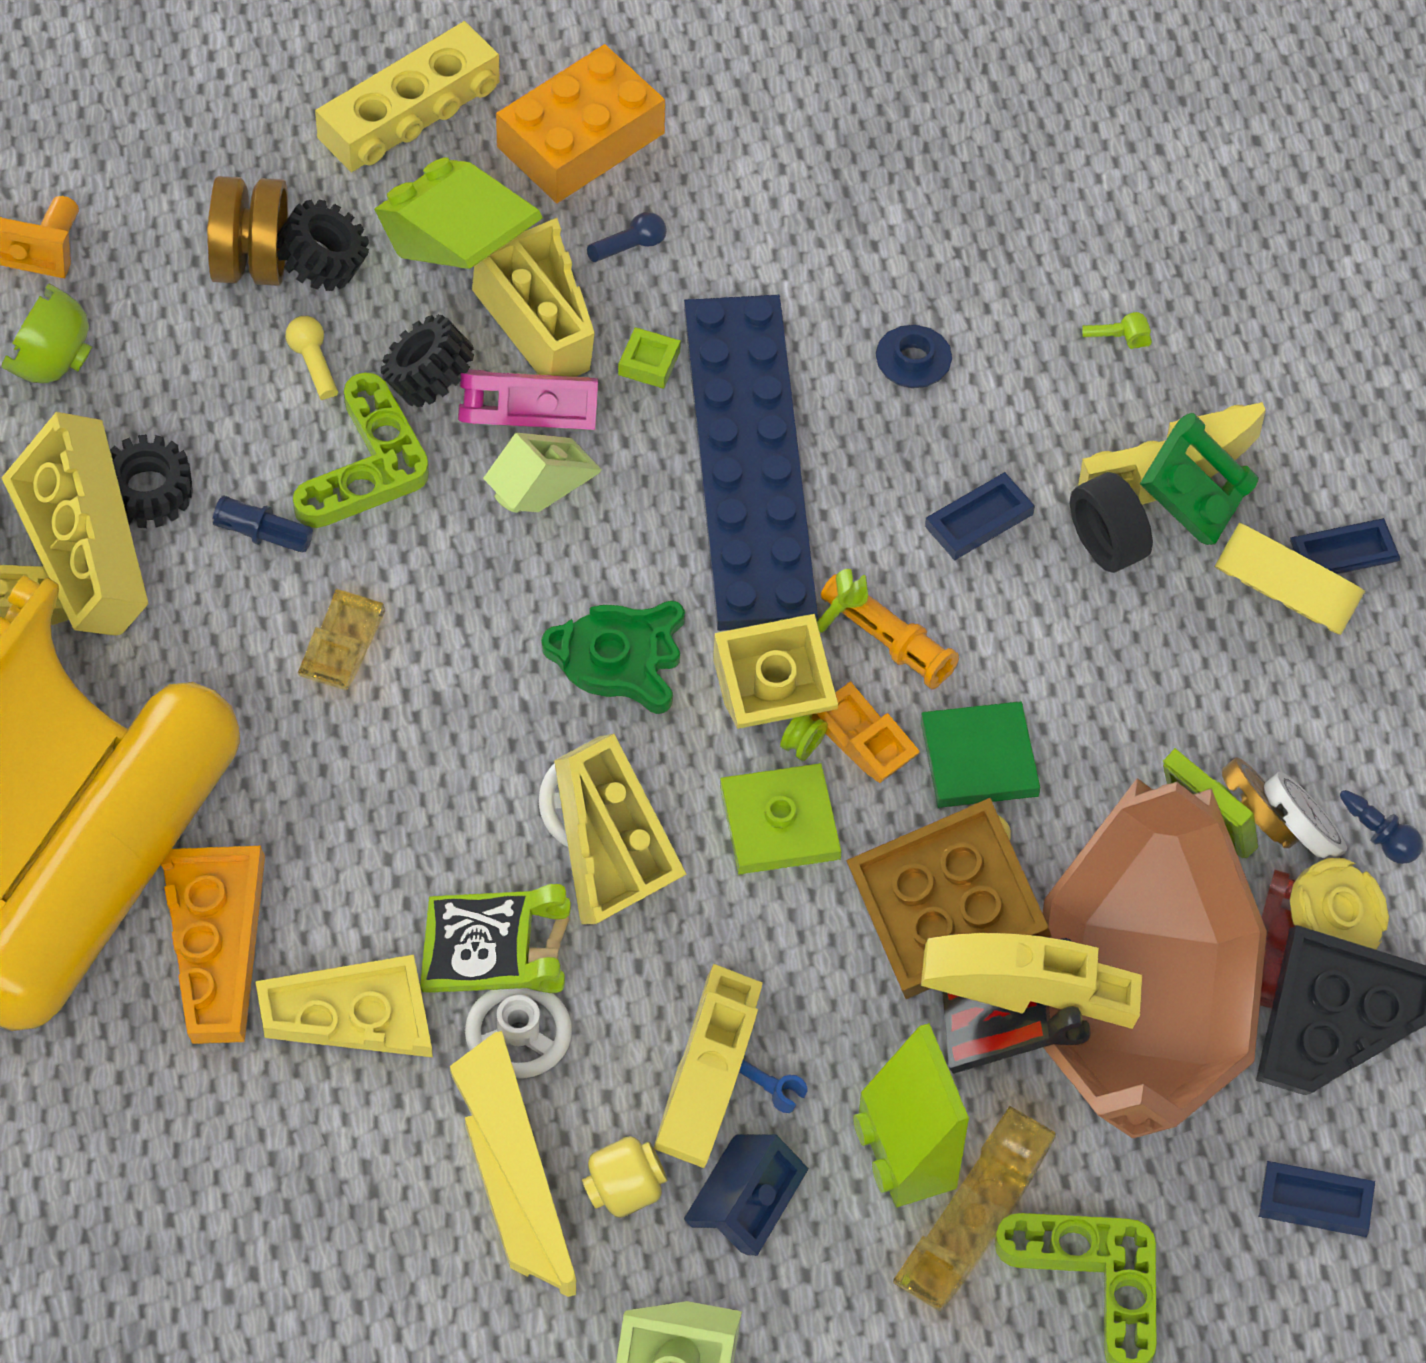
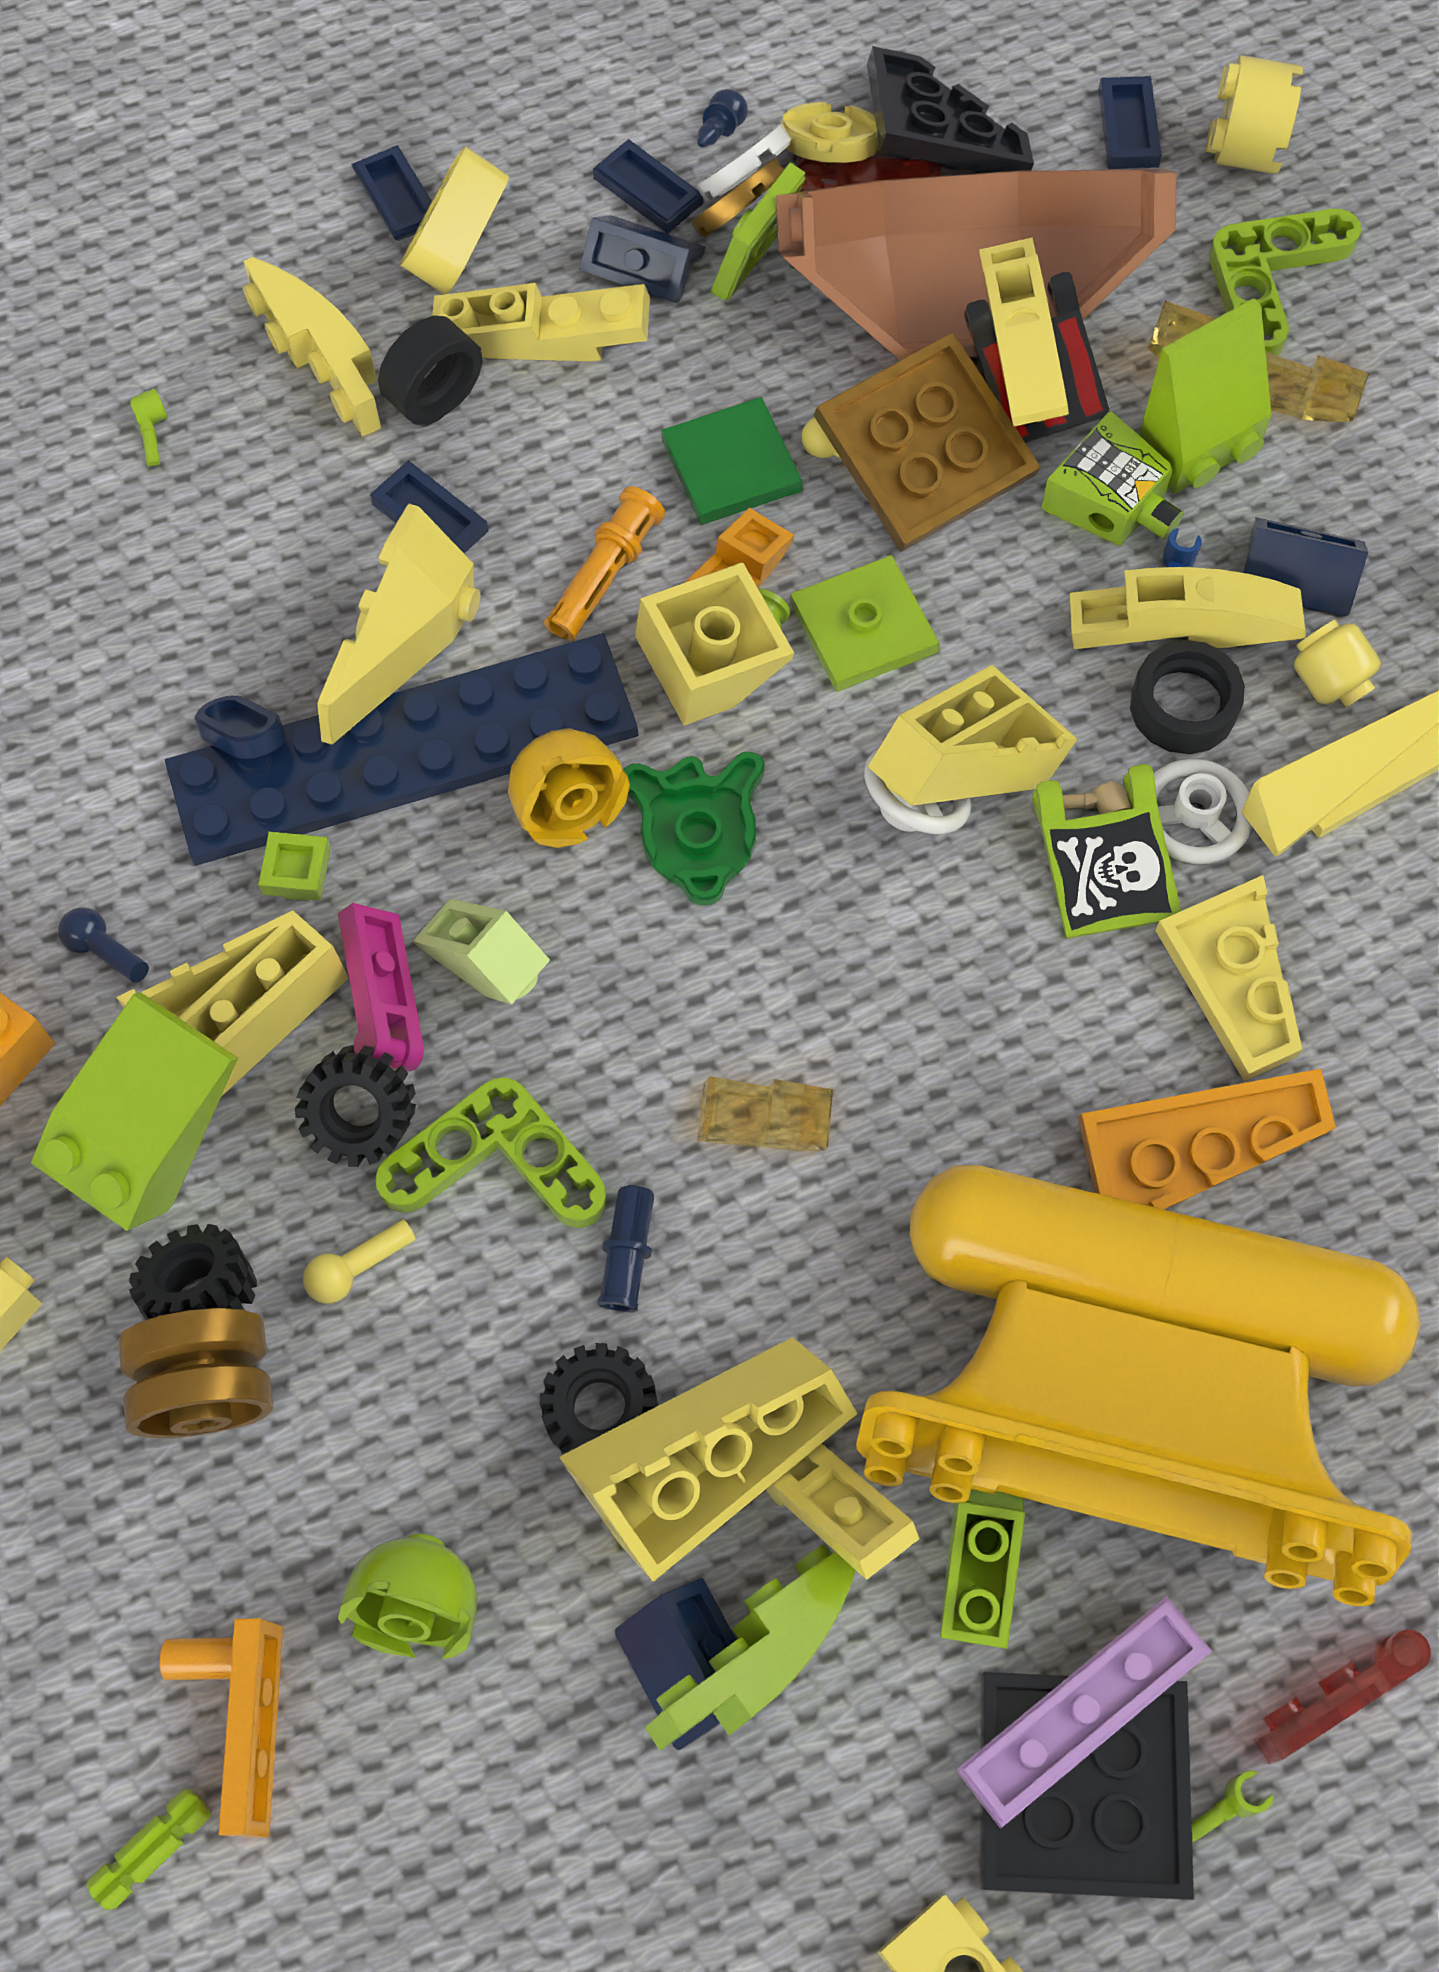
camera: 100 degrees left, 10 degrees up
(628, 1084) = (1178, 734): none -> black tyre
(665, 543) = (566, 786): none -> yellow cylinder
(788, 341) = (240, 727): none -> dark blue tile
(850, 595) = (579, 591): lime hand -> none
(857, 1041) = (1113, 485): none -> lime torso
(862, 465) = (402, 624): none -> light yellow wedge
(913, 372) = (227, 634): dark blue piece -> none
(1160, 624) = (559, 327): none -> light yellow slope
(1188, 490) = (365, 306): green plate -> none
(1230, 723) = (639, 255): none -> panel
(1276, 1285) = (1255, 113): none -> light yellow brick
(1318, 751) = (648, 186): none -> dark blue tile

